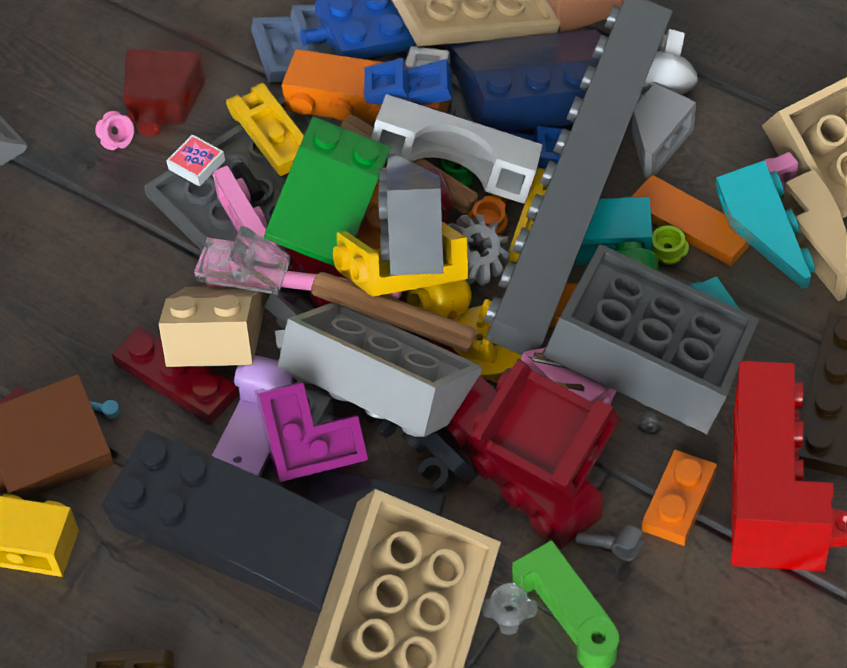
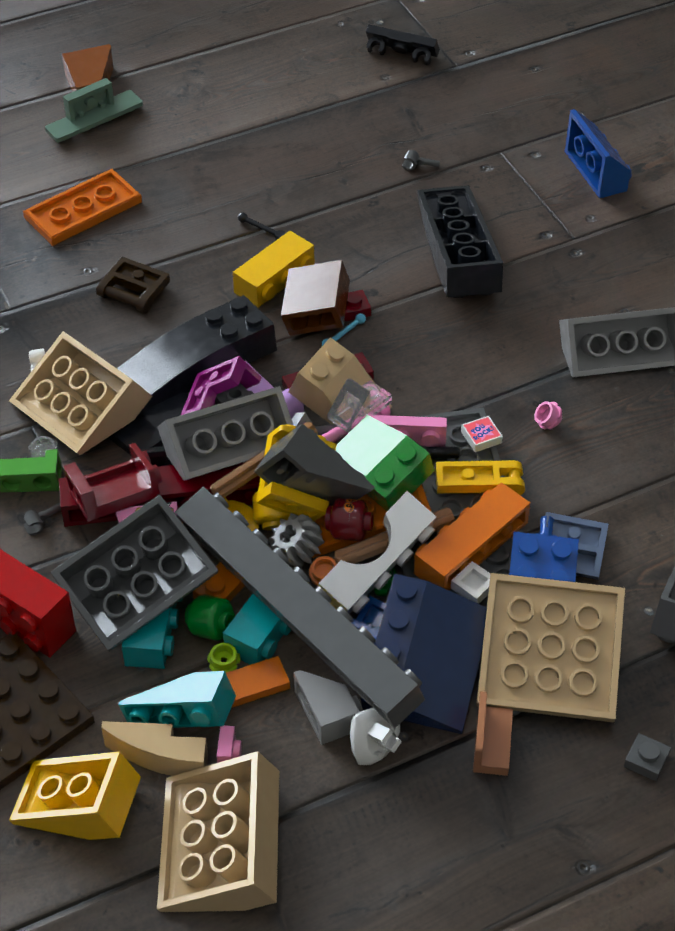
camera: 115 degrees right, 5 degrees down
(161, 87) = (571, 448): clear red torso -> none
(417, 84) = (445, 541): blue slope -> none
(679, 497) = (36, 555): orange plate -> none

